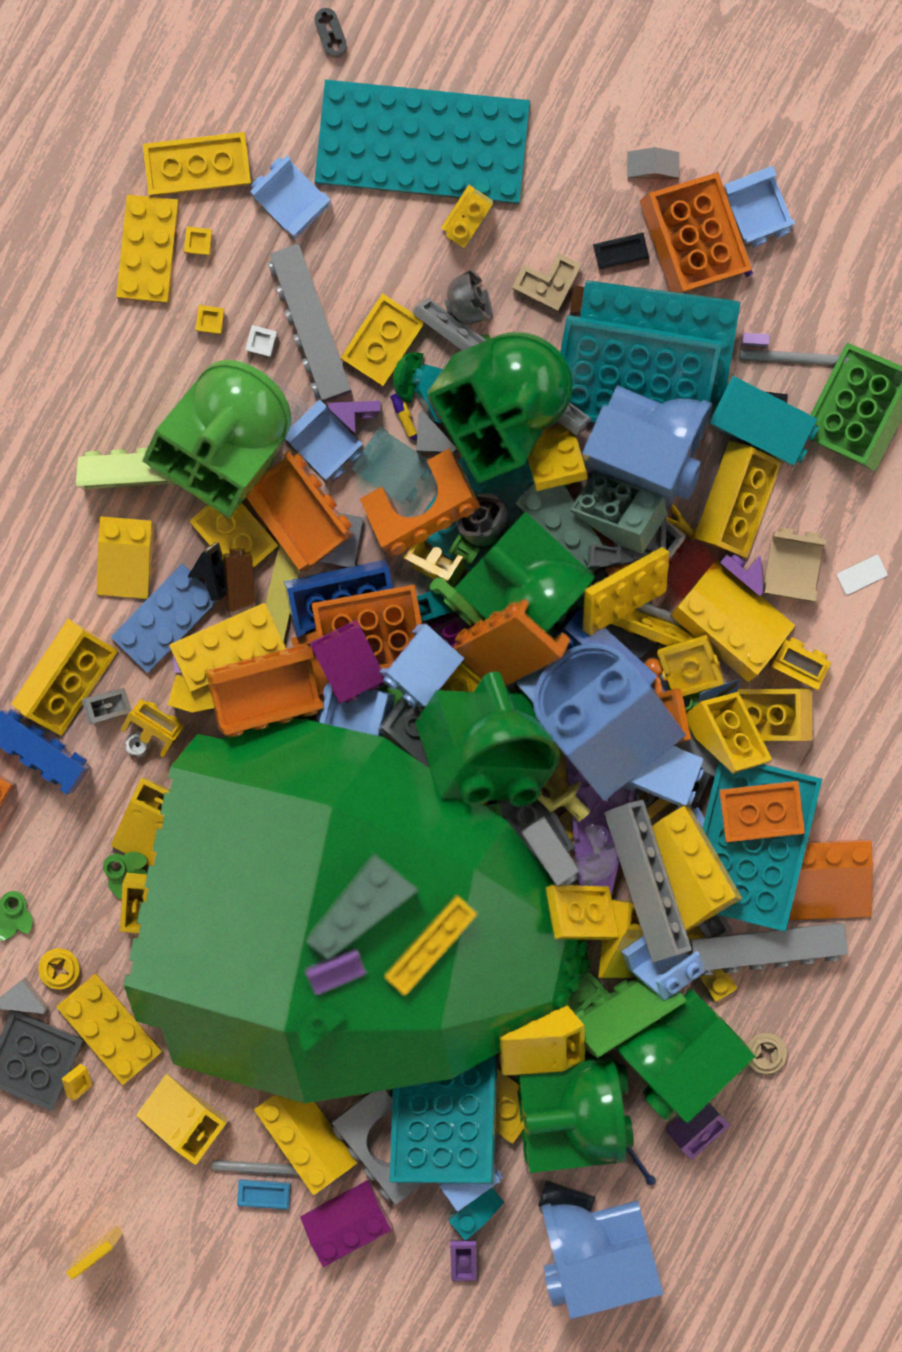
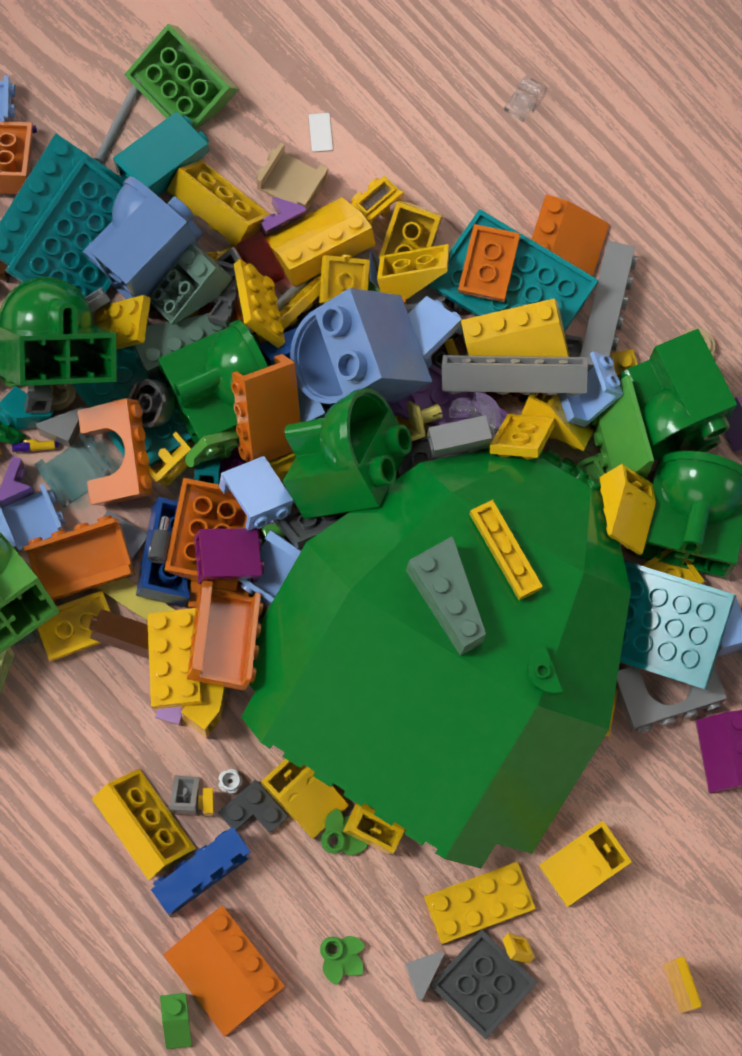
camera: 75 degrees left, 15 degrees down
(47, 971) = (408, 916): yellow gear -> none
(106, 730) = (206, 802): none -> yellow plate
(124, 557) = (57, 729): yellow slope -> none
(125, 775) = (253, 802): none -> dark grey plate
(154, 723) = (217, 754): yellow window -> none
(164, 618) = (126, 715): medium blue plate -> none
(211, 566) = (97, 652): black slope -> none
(254, 1167) = (658, 798): light grey piece -> none
(263, 1194) = (678, 818): dark azure tile -> none
(306, 1140) = (640, 758): yellow slope -> none
(335, 971) = (499, 639): medium lavender panel -> none
(338, 588) = (160, 543): none -> dark grey piece
(464, 549) = (162, 432): bright green bush -> none
(755, 340) = (91, 141): lavender tile -> none

